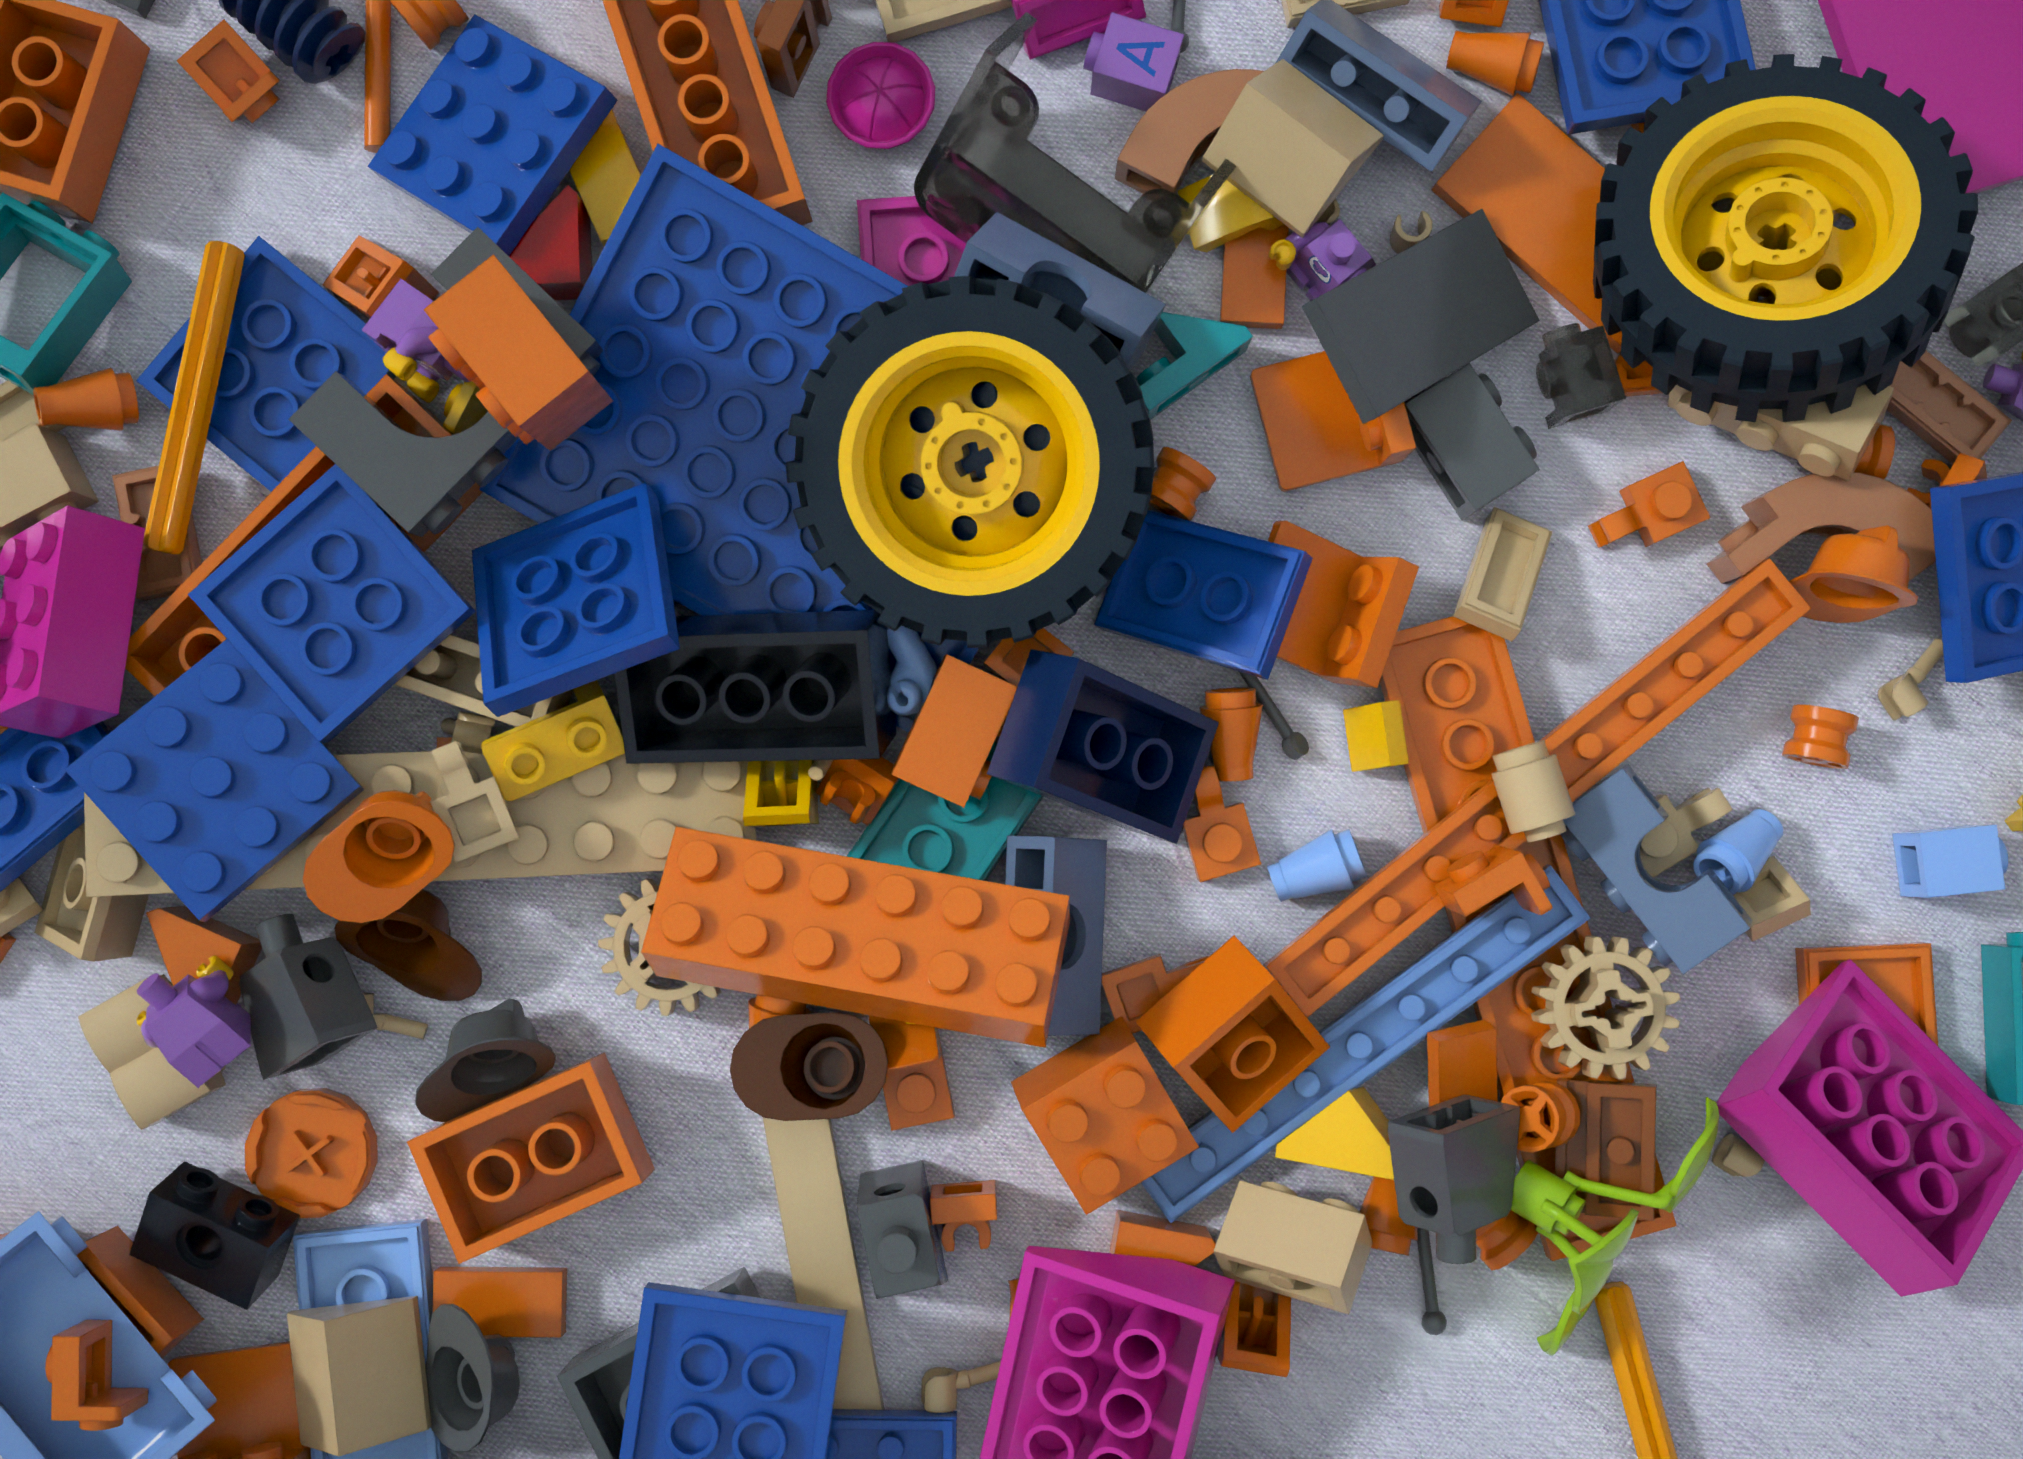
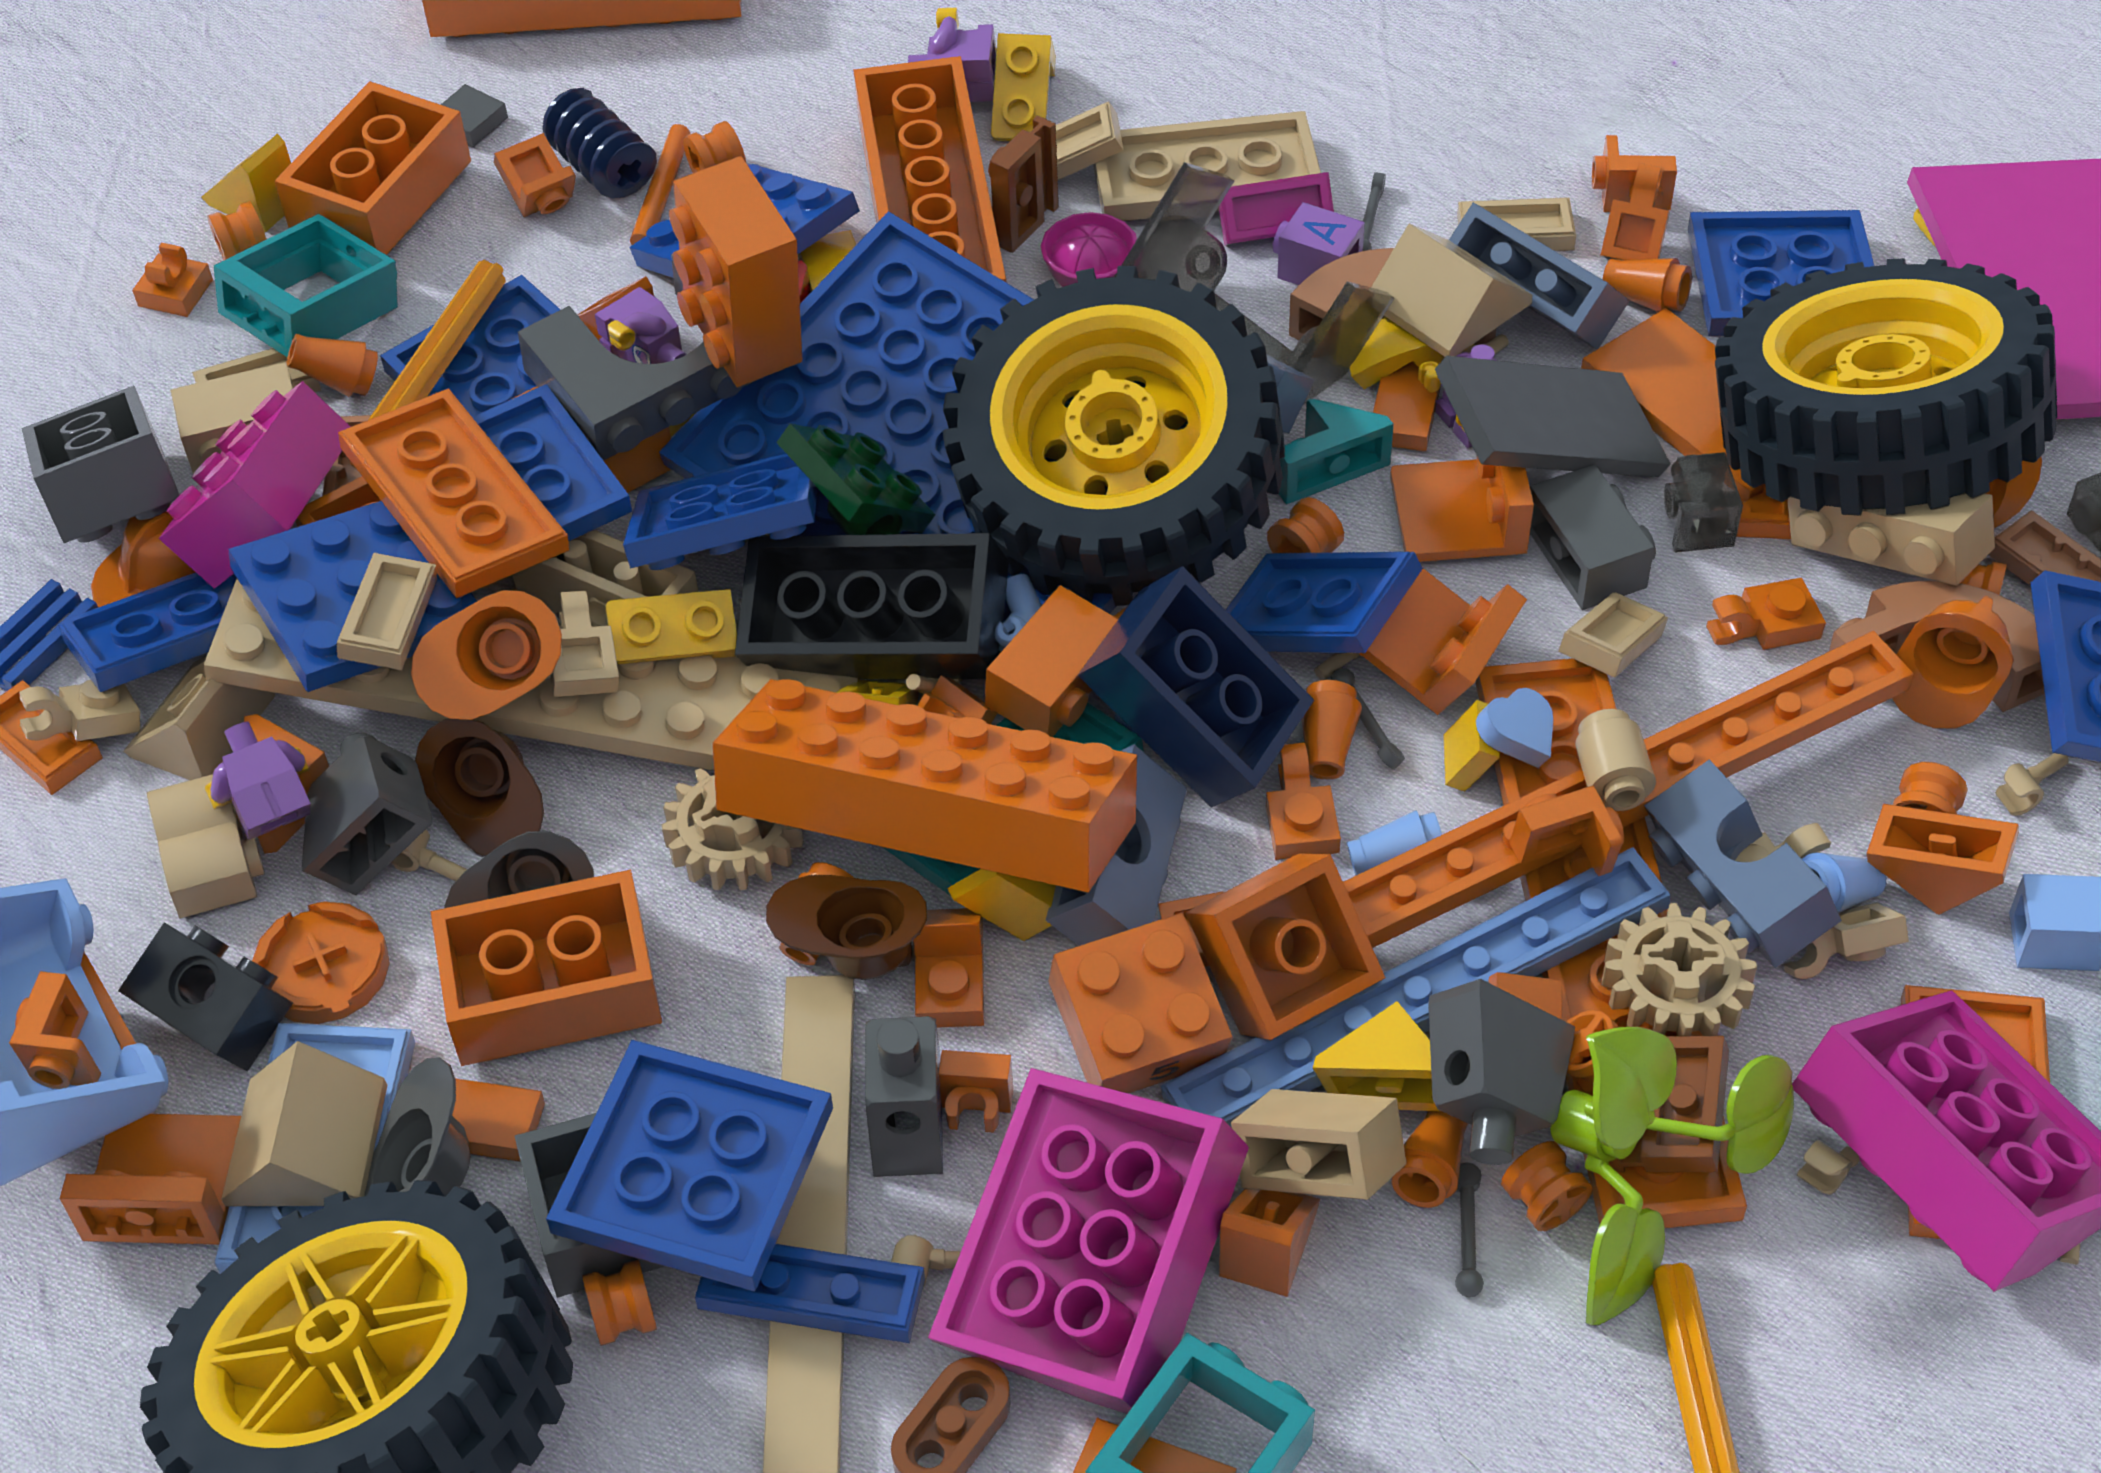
camera: 10 degrees right, 35 degrees down
(259, 830) = (387, 611): none -> tan tile
(278, 645) = (453, 492): none -> orange tile
(704, 543) = (857, 481): none -> dark green plate
(1425, 725) = (1518, 726): none -> light blue tile
(1844, 812) = (1941, 854): none -> orange slope

